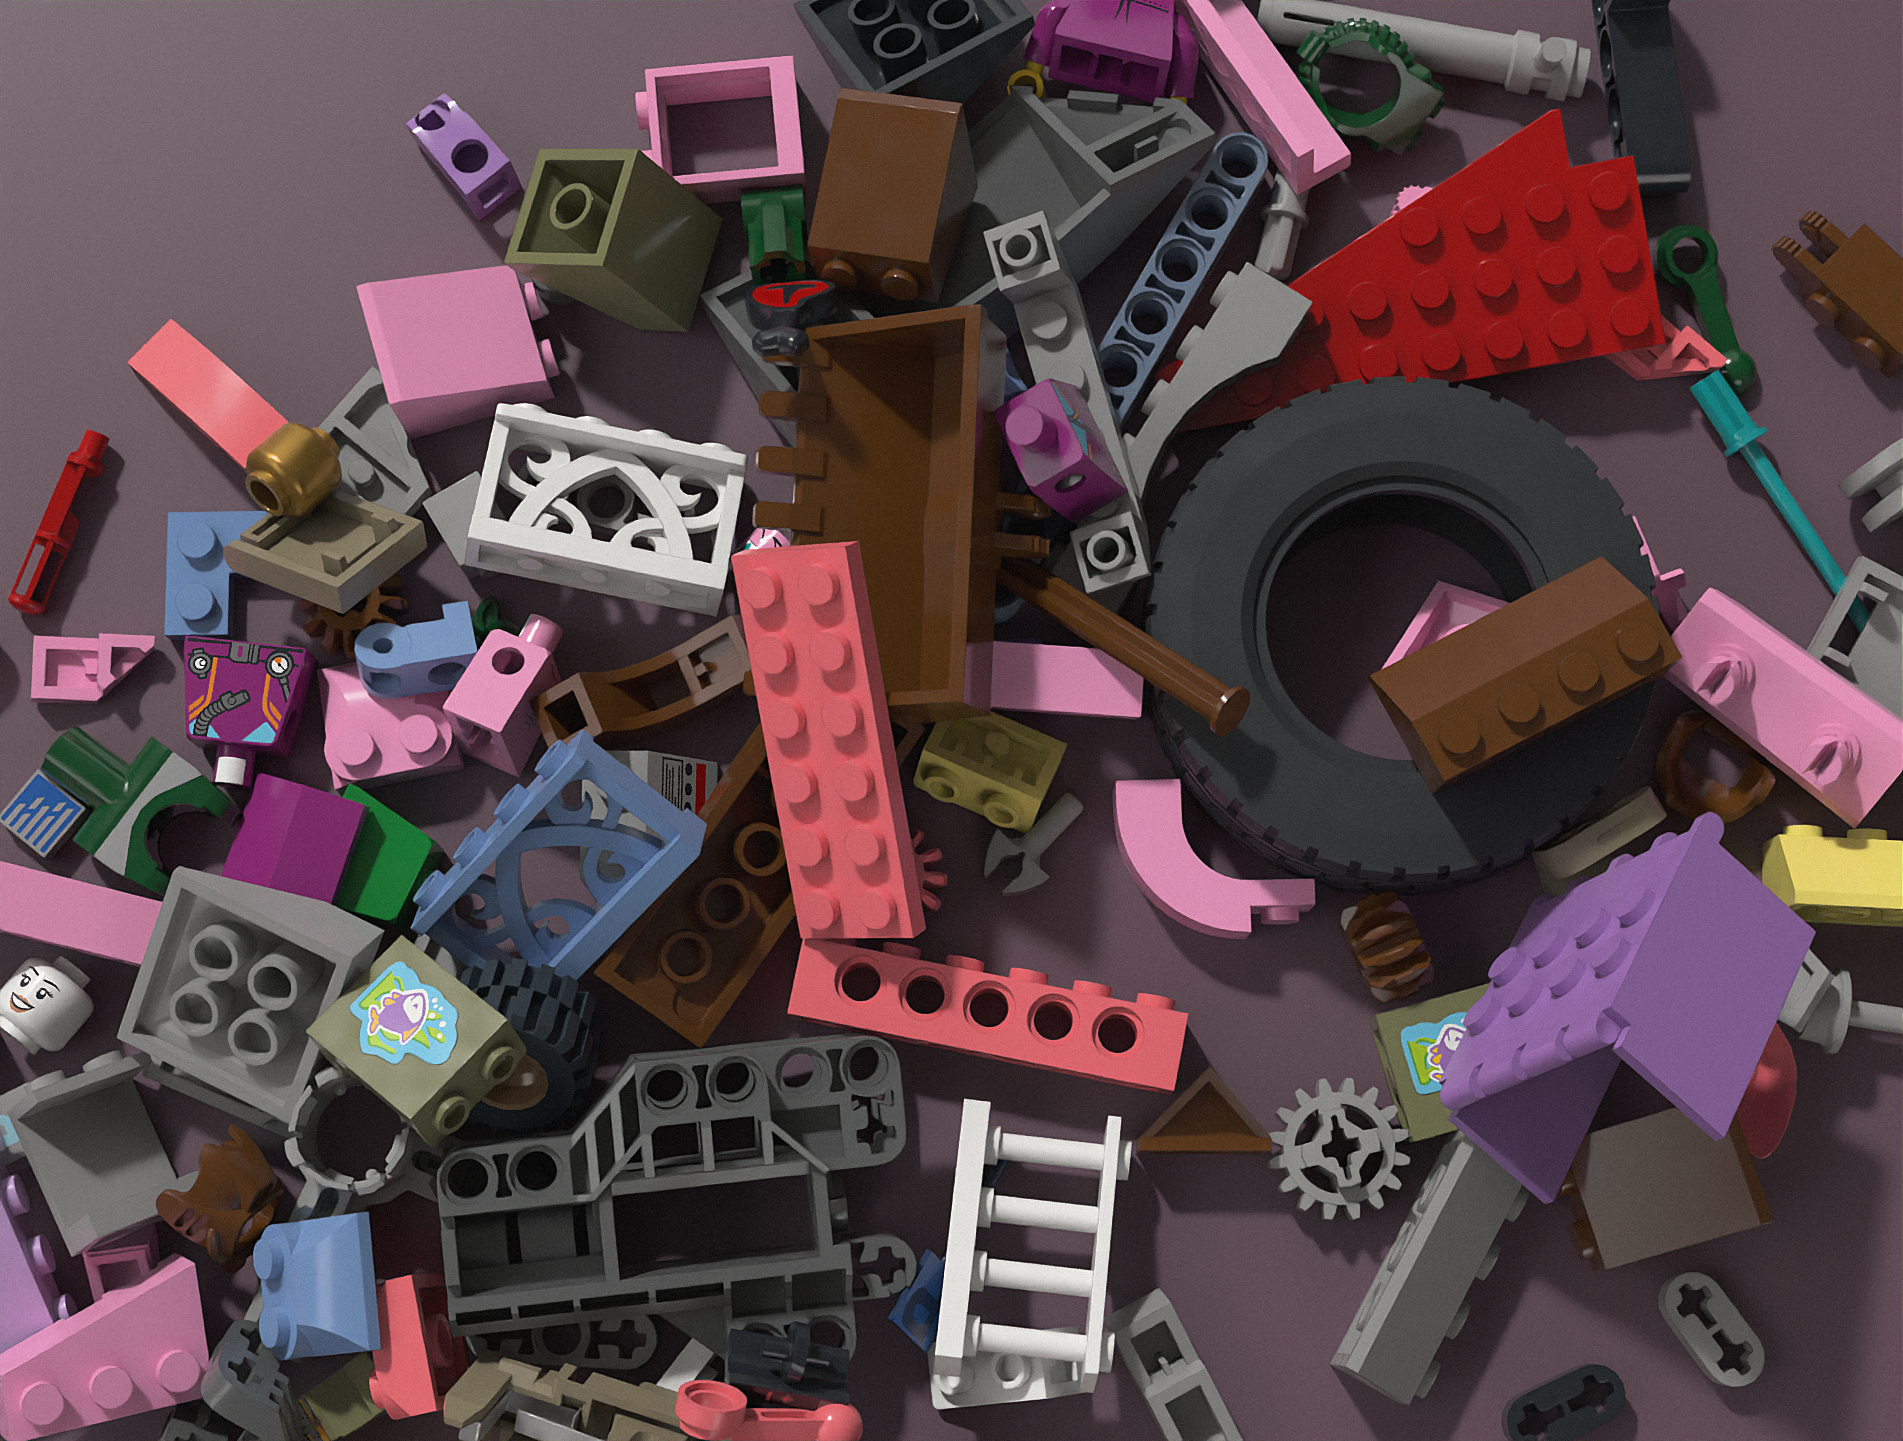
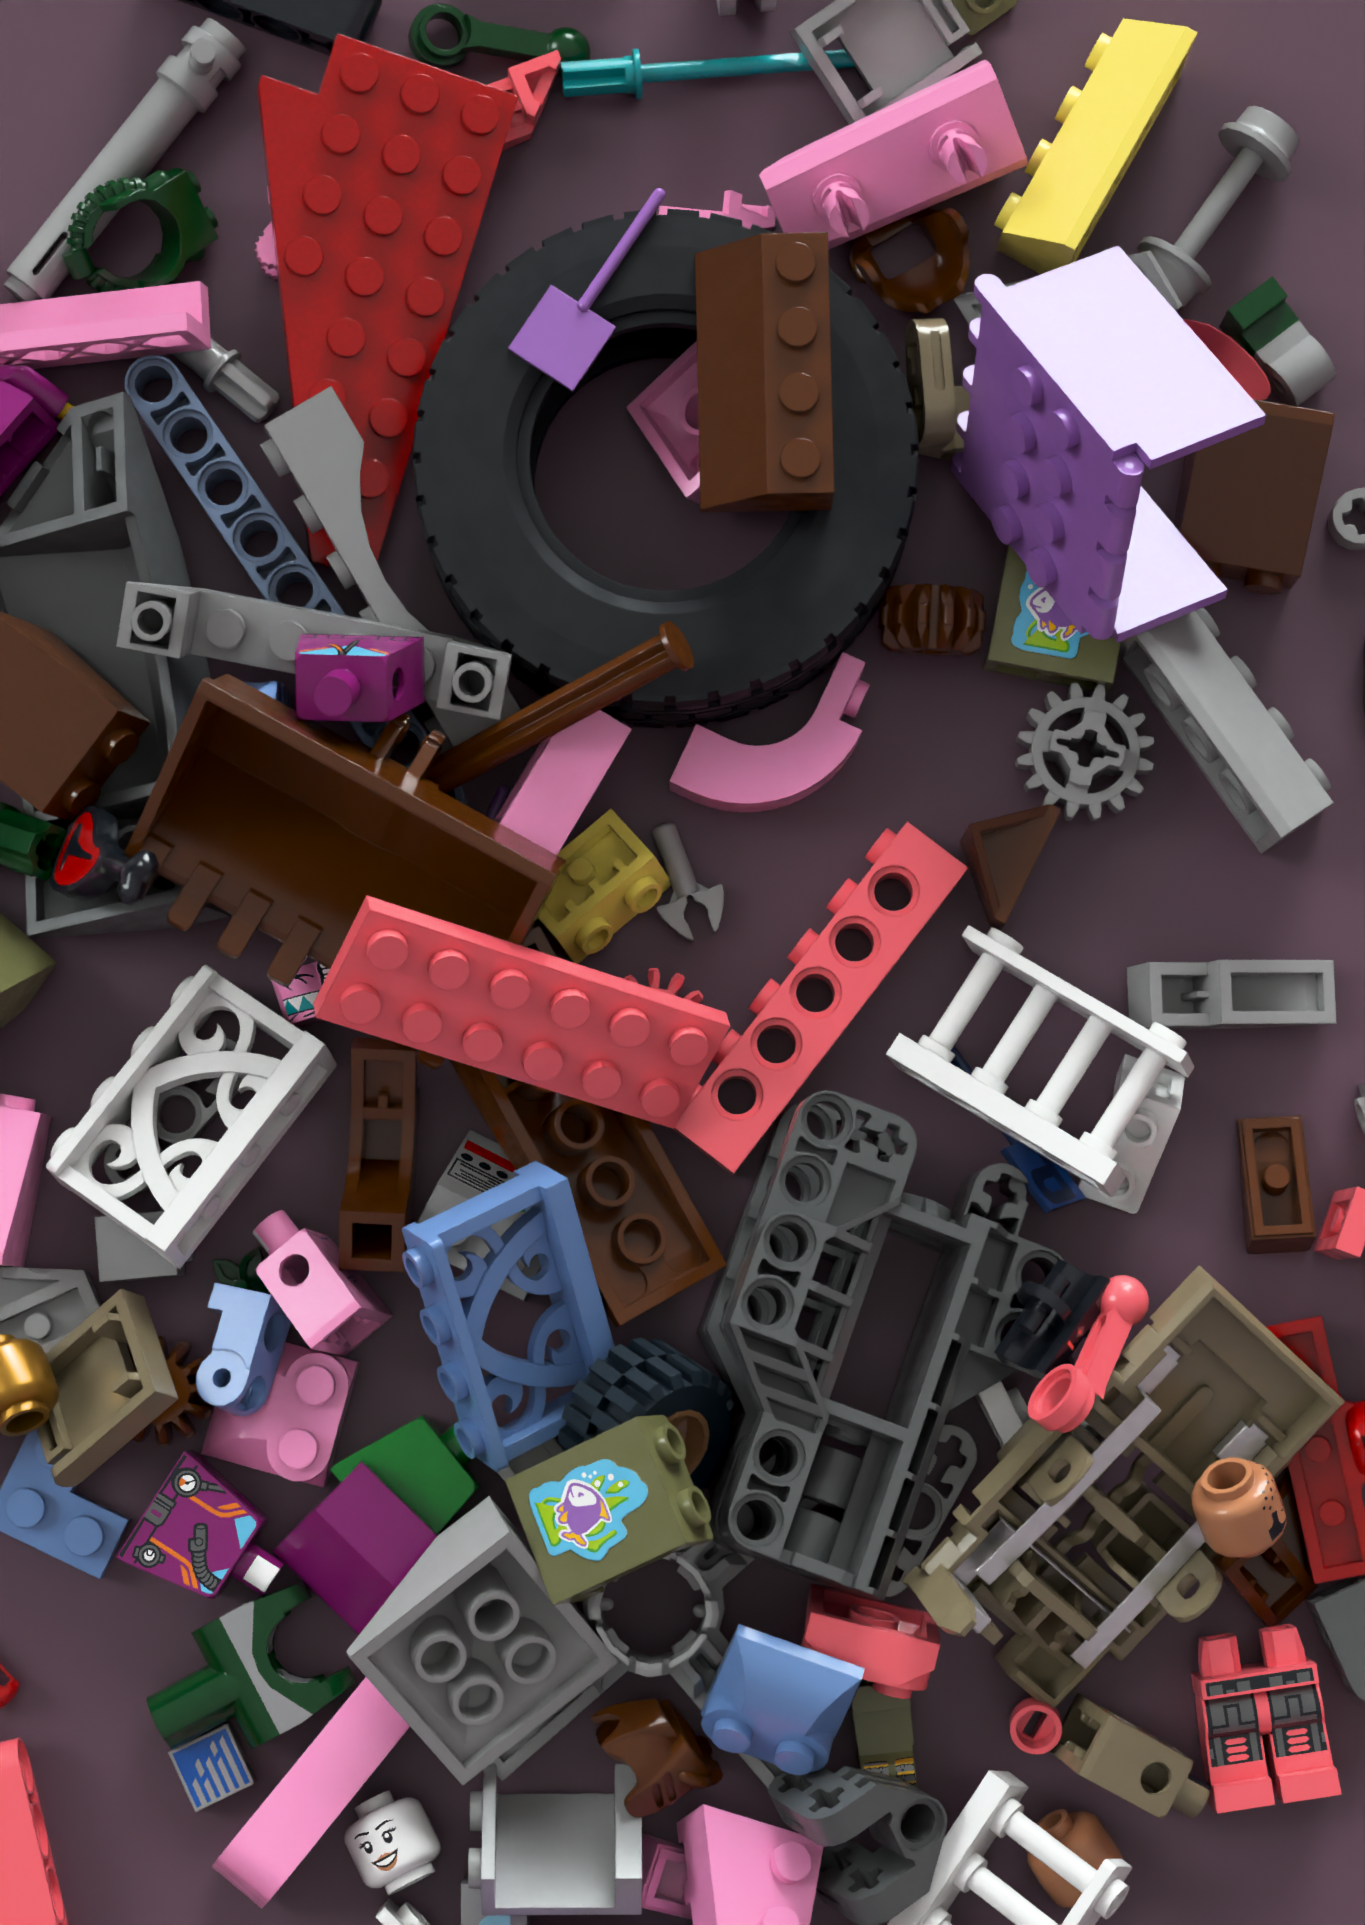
camera: 65 degrees left, 5 degrees up
(84, 668) = (90, 1669): bright pink slope -> none
(1467, 478) = (564, 334): none -> medium lavender piece
(1815, 1144) = (1279, 343): none -> leg

